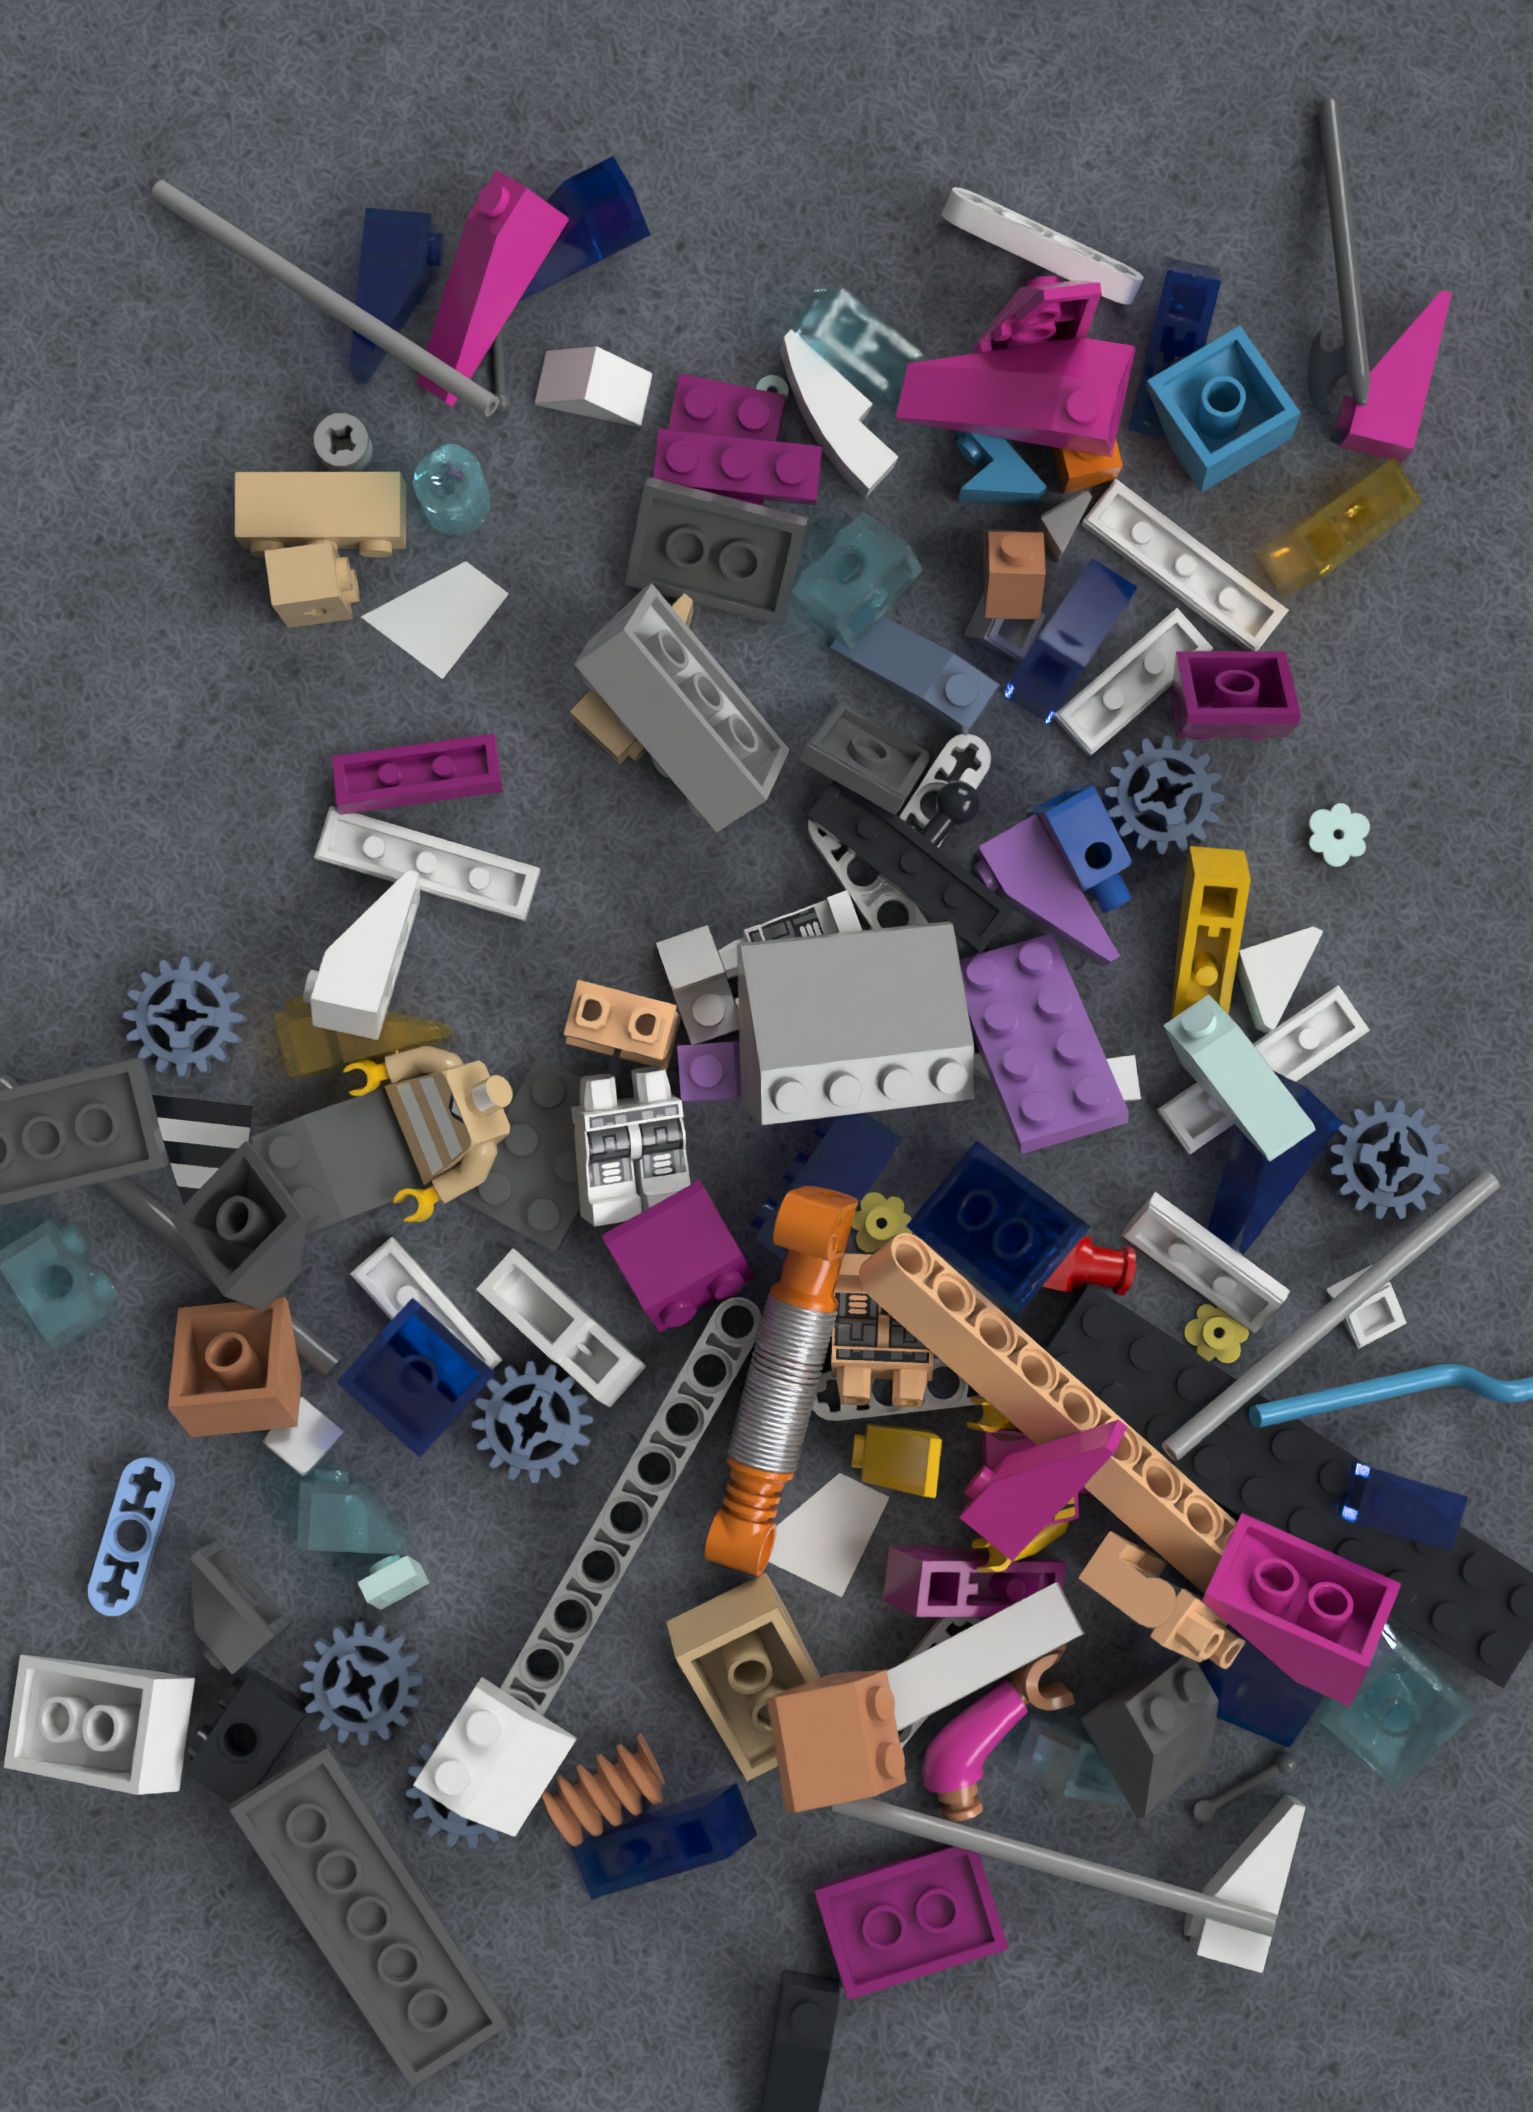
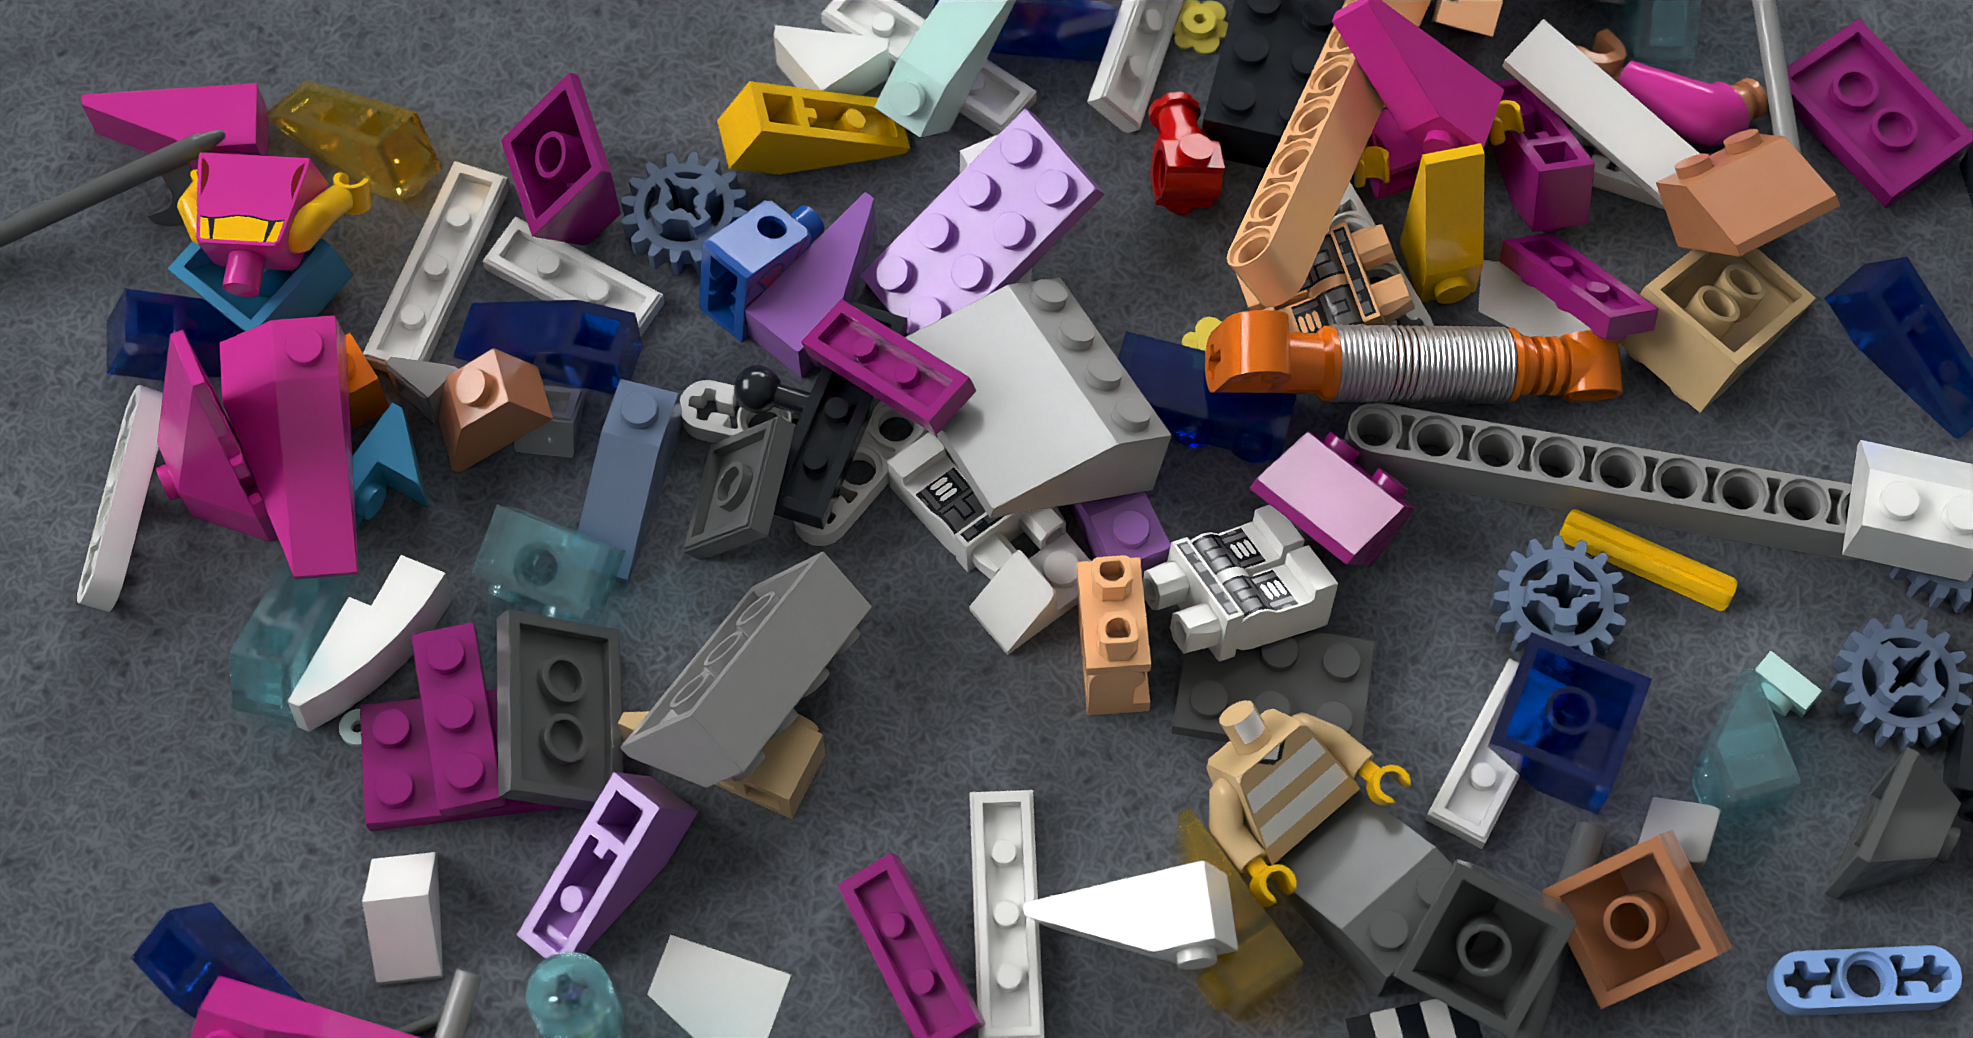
camera: 105 degrees left, 20 degrees down
(550, 1518) = (1650, 560): none -> yellow axle
(561, 1328) = (1450, 609): white slope -> none
(571, 551) = (608, 863): none -> medium lavender slope
(605, 1792) = (1889, 408): nougat piece -> none
(811, 1557) = (1579, 286): none -> magenta plate
(919, 909) = (889, 366): none -> magenta plate
(997, 1227) = (1185, 199): clear blue slope -> none
(1253, 412) = (263, 212): none -> dark pink torso
(1352, 829) = (662, 47): light aqua plant -> none

